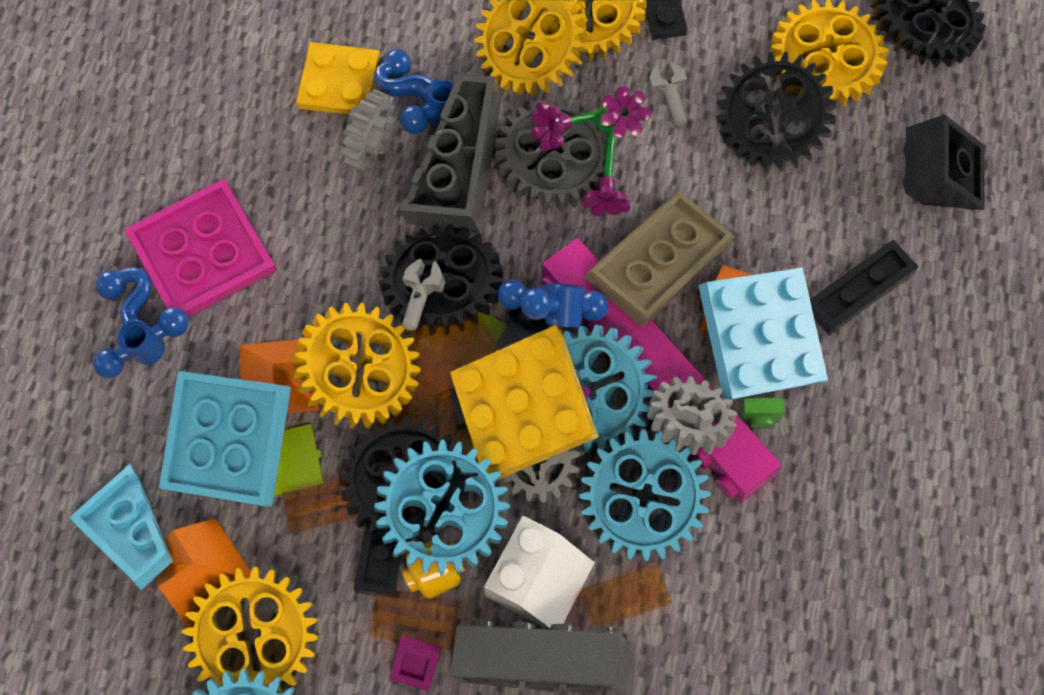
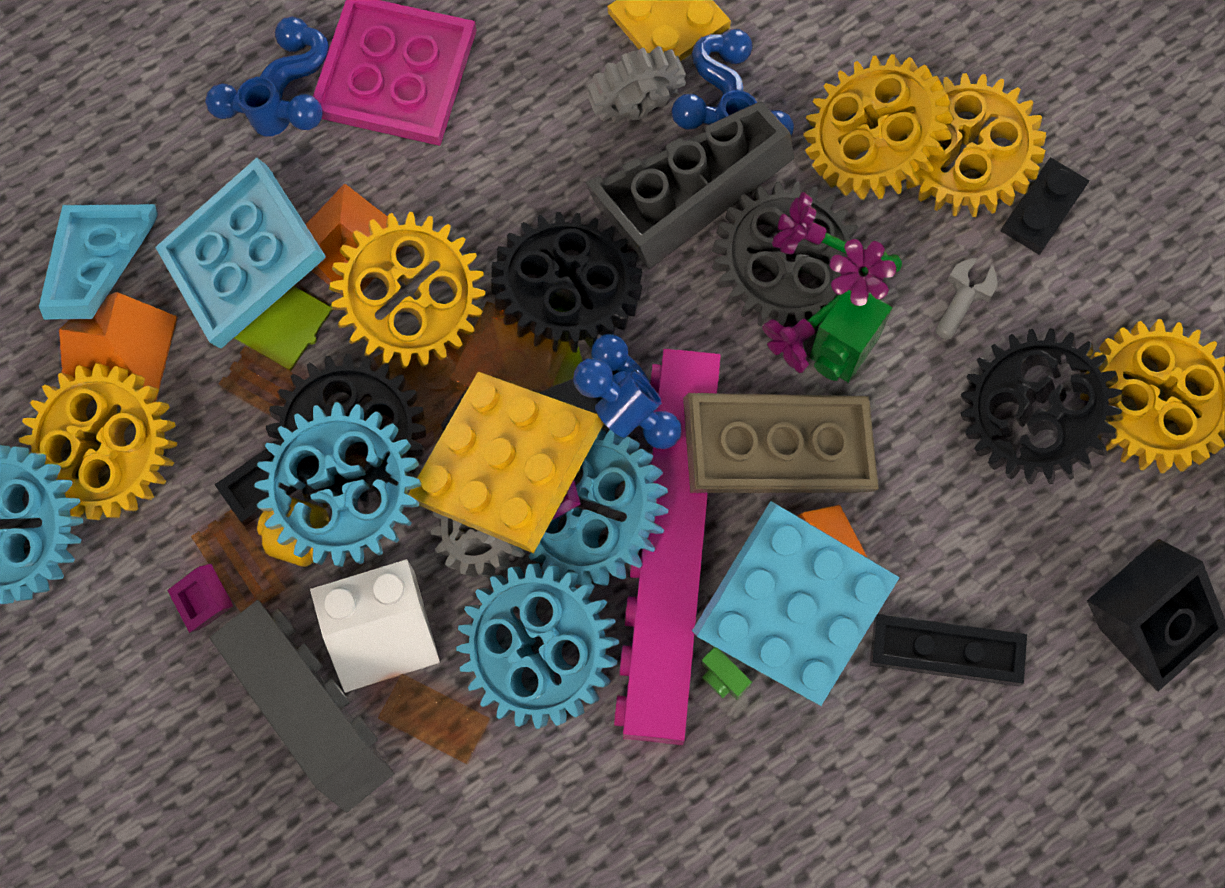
camera: 45 degrees right, 5 degrees up
(411, 278) = (527, 273): light grey bar -> none
(638, 164) = (848, 336): none -> green brick
(692, 415) = (638, 615): light grey gear -> none

